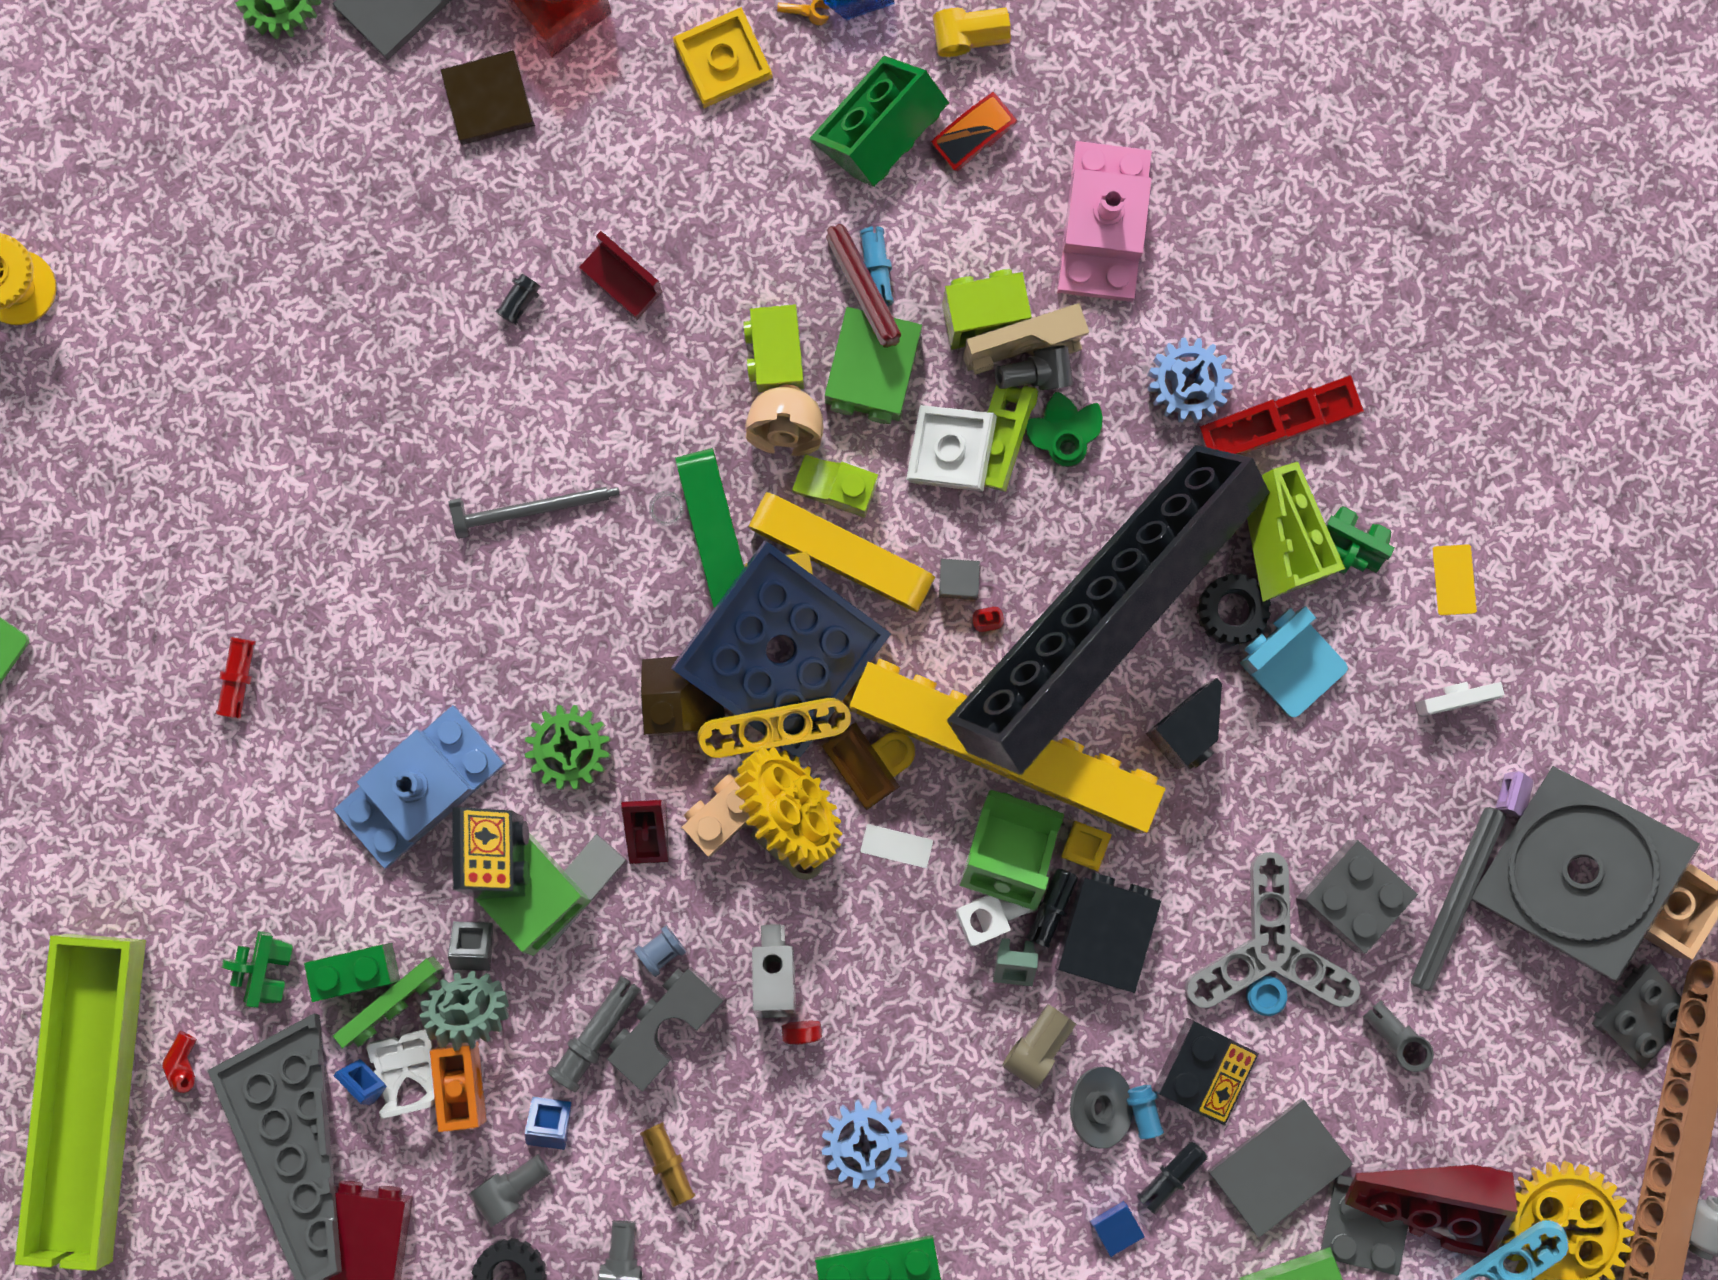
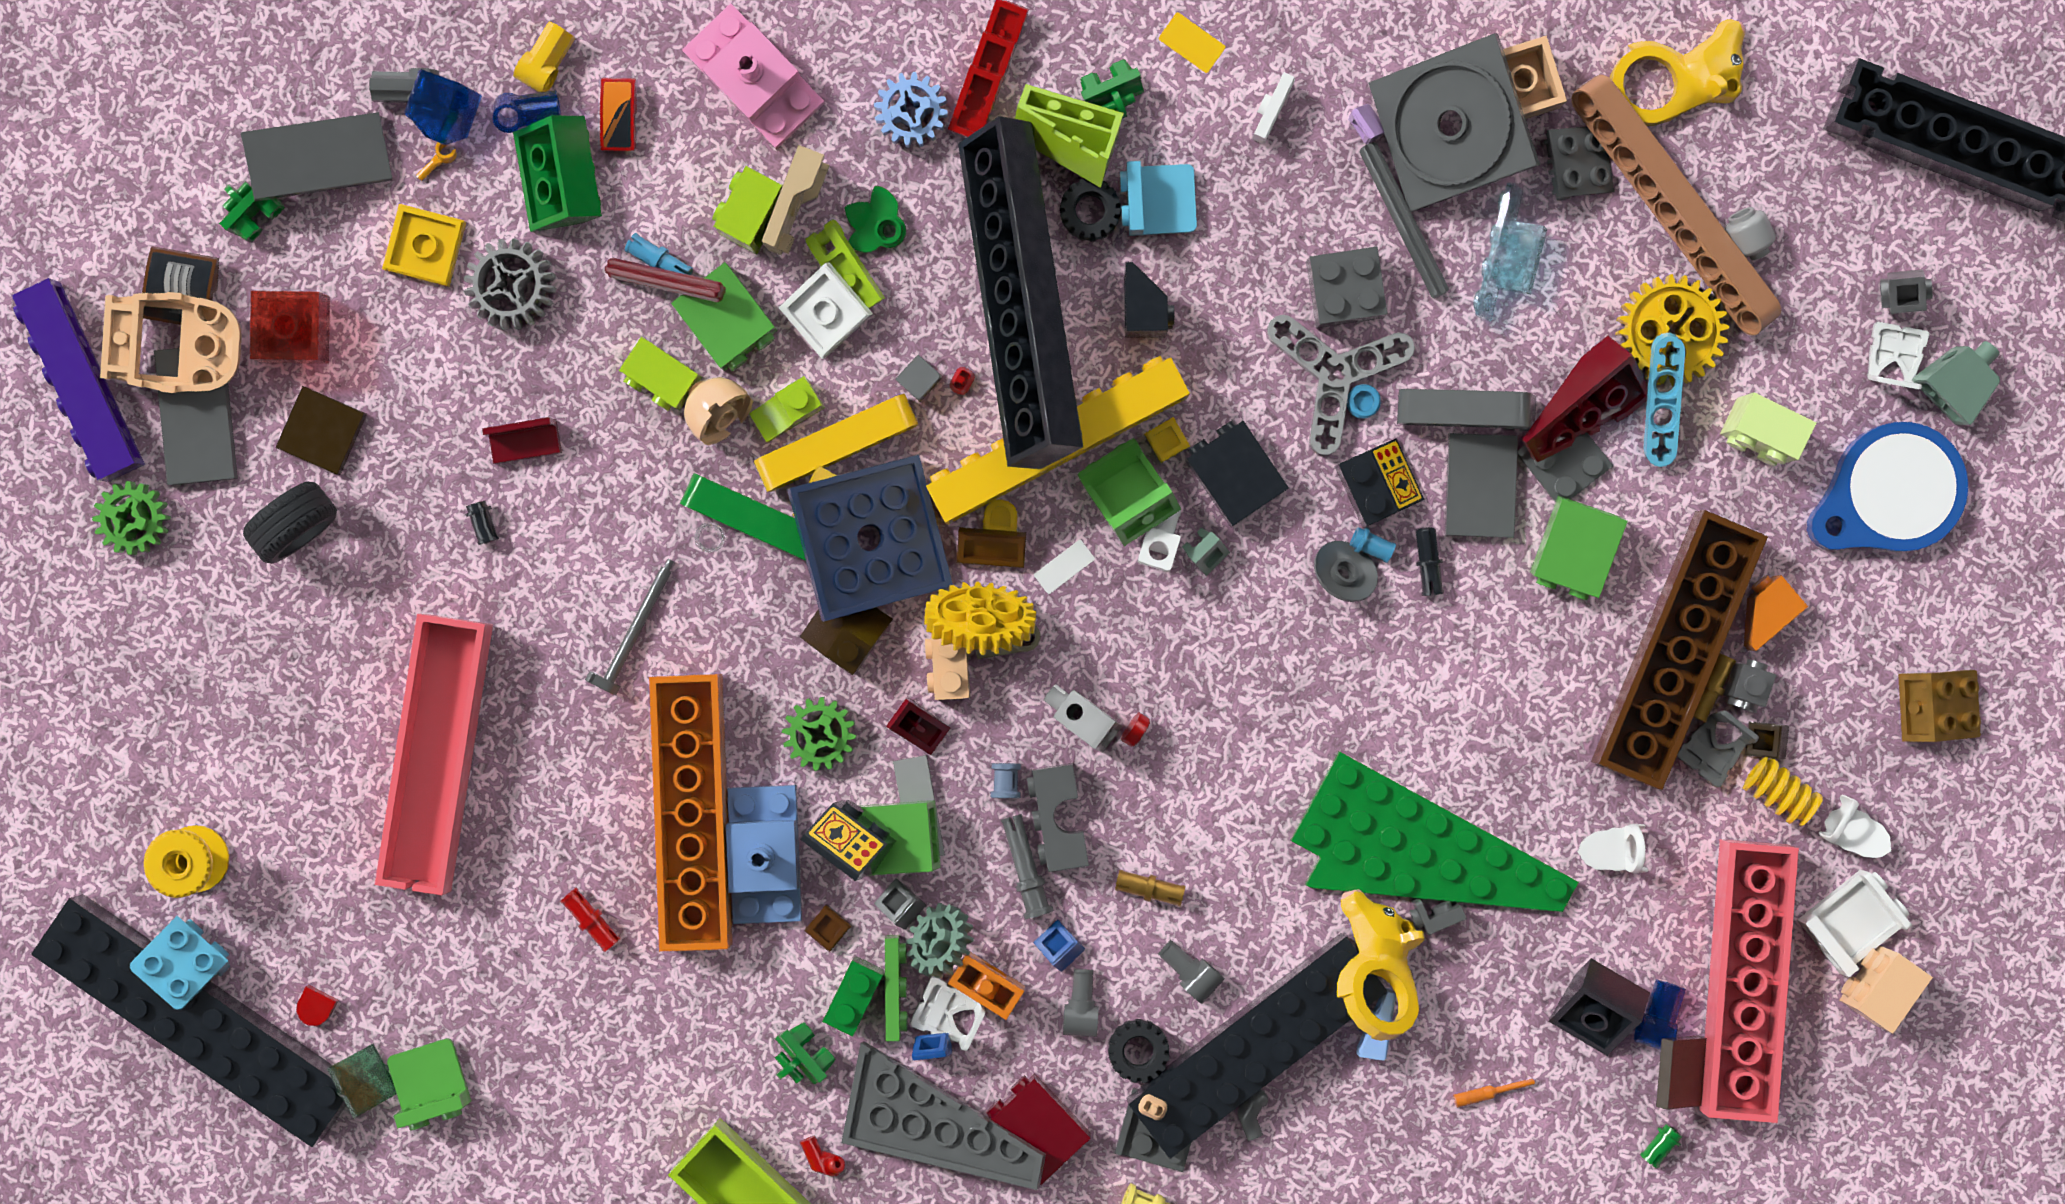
camera: 55 degrees left, 5 degrees up
(273, 420) = (433, 754): none -> coral piece
(381, 130) = (289, 522): none -> black tyre
(397, 897) = (828, 927): none -> reddish brown tile
(402, 689) = (690, 812): none -> orange brick
(761, 163) = (524, 277): none -> light grey gear
(773, 721) = (921, 586): yellow beam -> none
(883, 1139) = (1234, 761): light blue gear -> none
(915, 49) = (529, 109): none -> clear blue piece
(1034, 1054) = (1275, 586): dark tan piece -> none
(1046, 369) = (824, 202): dark grey pin -> none
(1052, 907) = (1189, 496): black axle -> none
(1117, 1228) = (1433, 625): blue slope -> none
(1339, 1097) = (1467, 408): none -> dark grey beam
(1398, 1036) = (1459, 336): dark grey pin -> none
(1511, 1024) = (1512, 255): none -> clear light blue bracket

